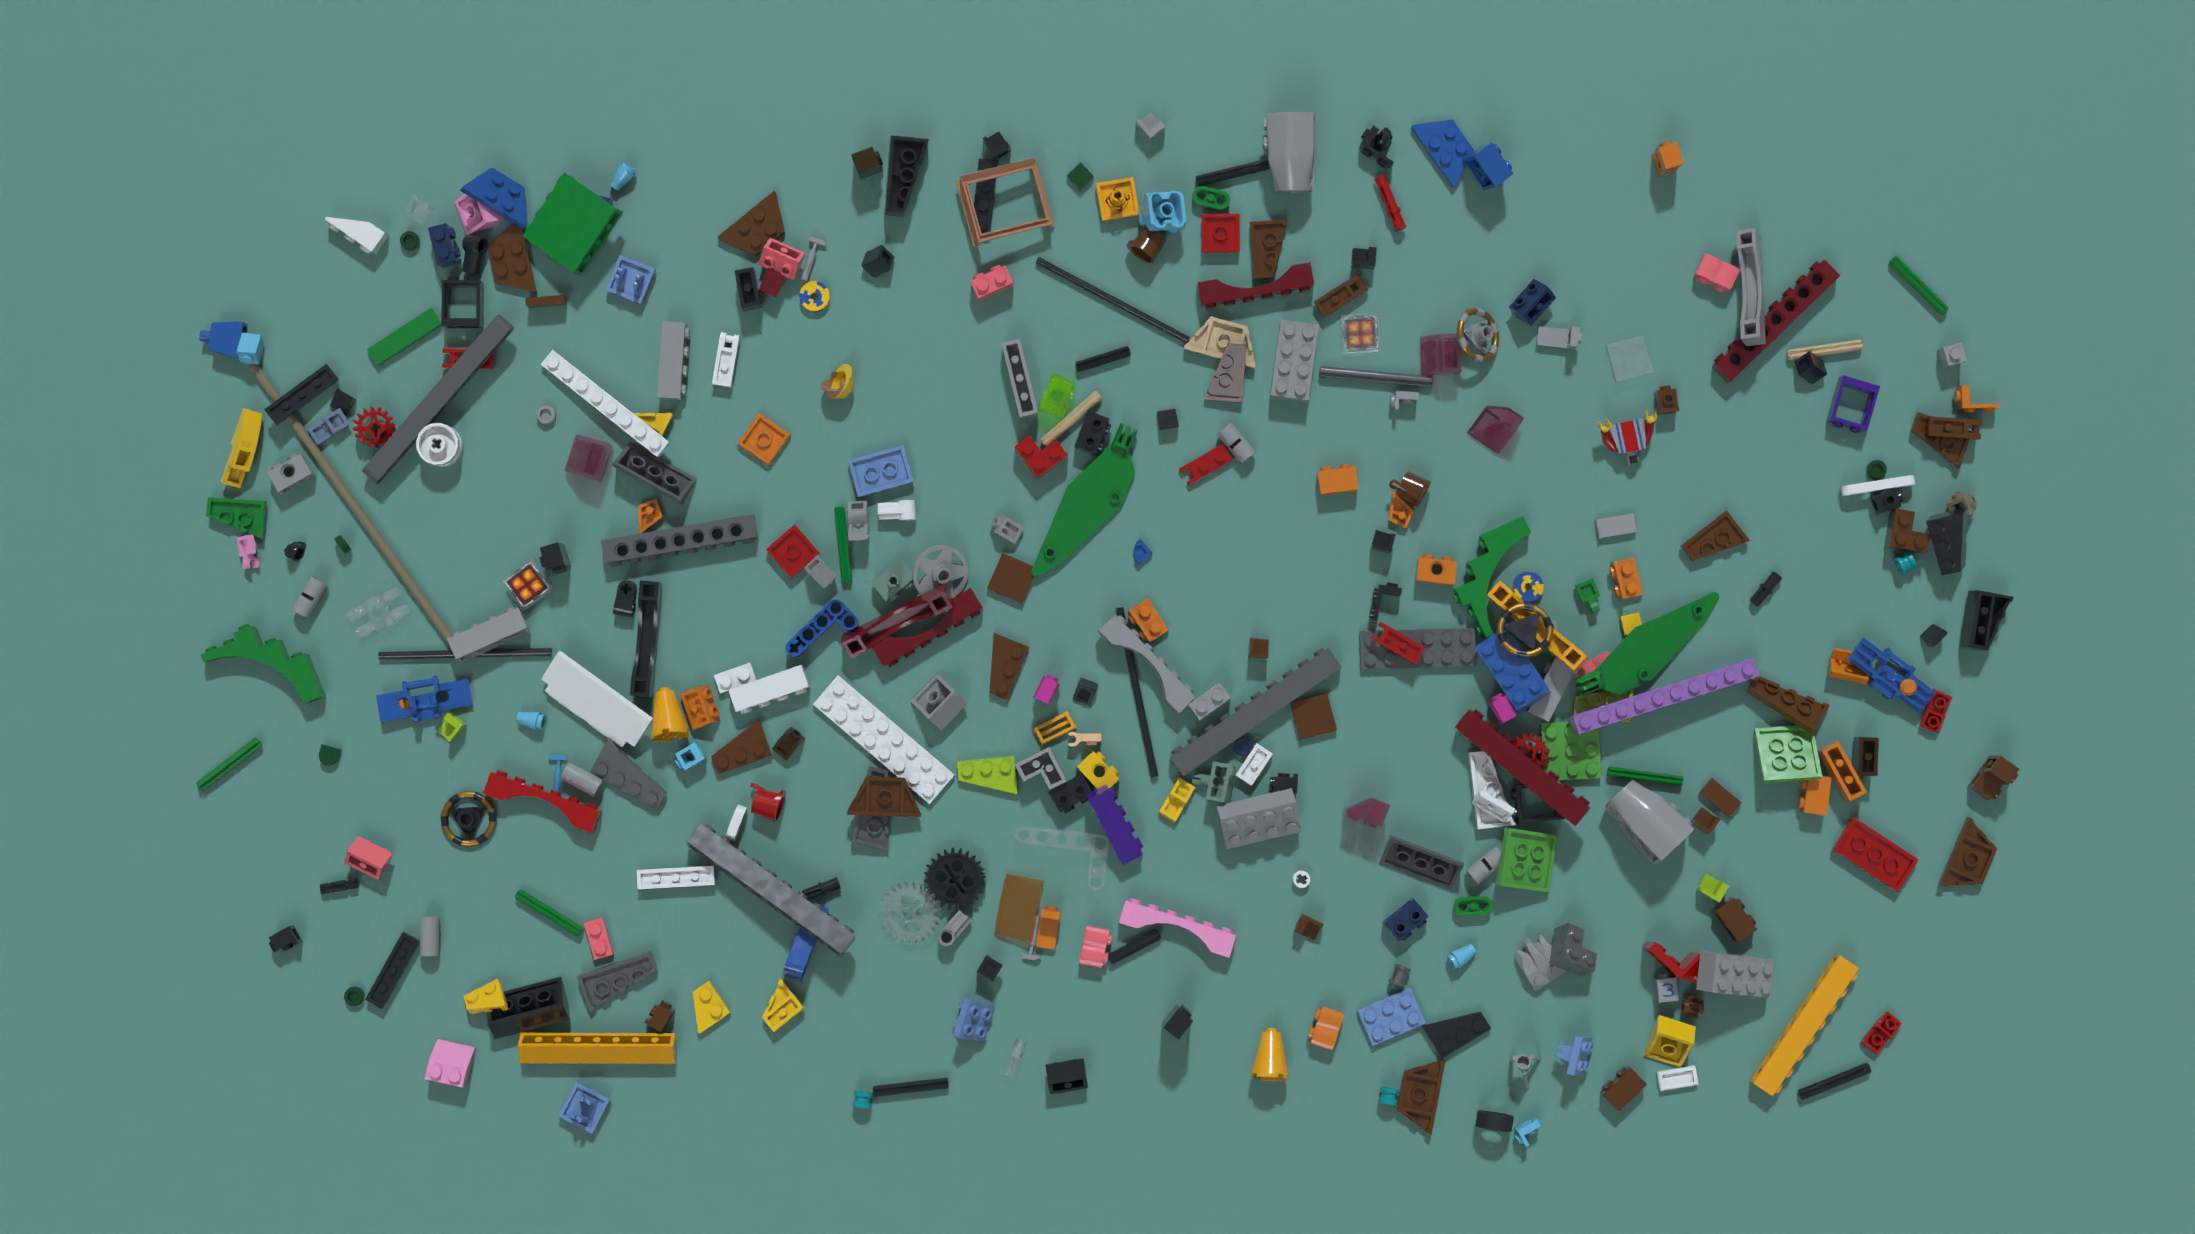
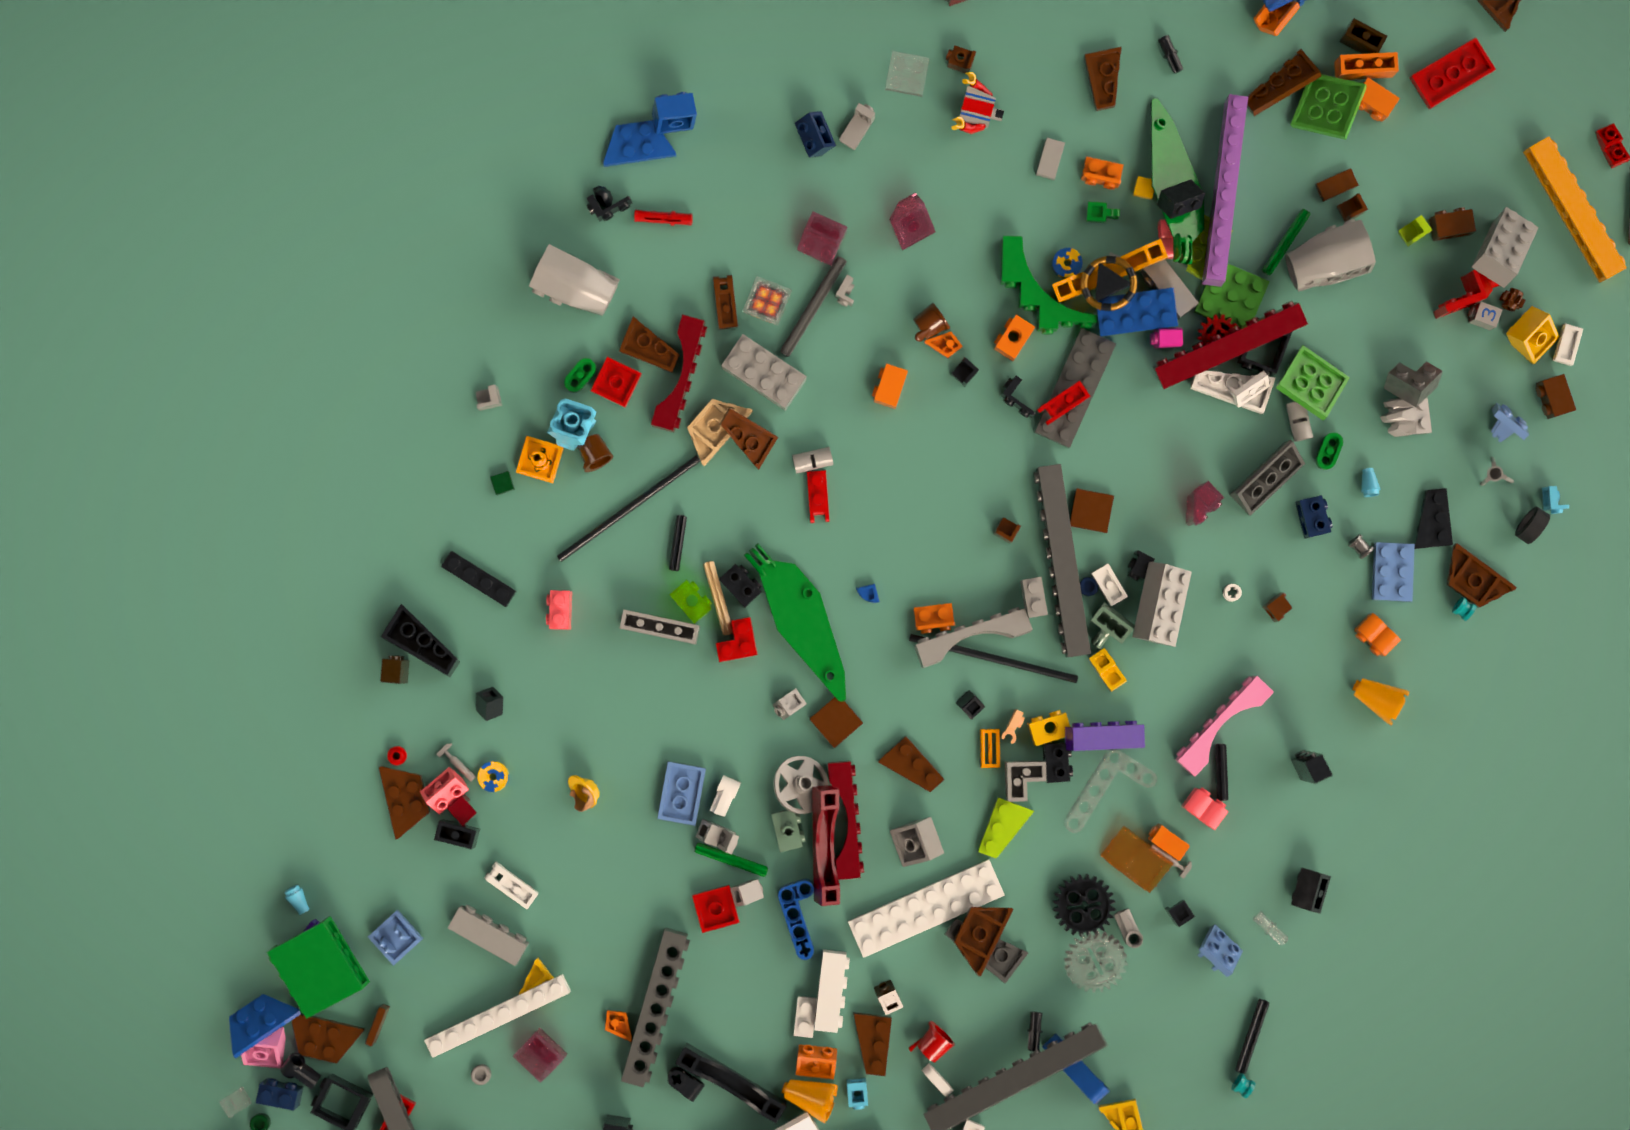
camera: 60 degrees left, 0 degrees up
(655, 472) = (583, 1001): dark grey slope -> none
(764, 439) = (600, 885): orange tile -> none
(792, 208) = (403, 755): none -> red plate
(969, 210) = (461, 558): nougat piece -> none
(996, 145) = (437, 545): black panel -> none
(1047, 689) = (953, 739): dark pink brick -> none
(1167, 419) = (761, 511): black slope -> none
(1232, 172) = (566, 345): black axle -> none
(1364, 258) = (701, 265): black panel -> none
(1478, 335) = (821, 196): light grey piece -> none
(1633, 658) = (1181, 199): none -> black brick

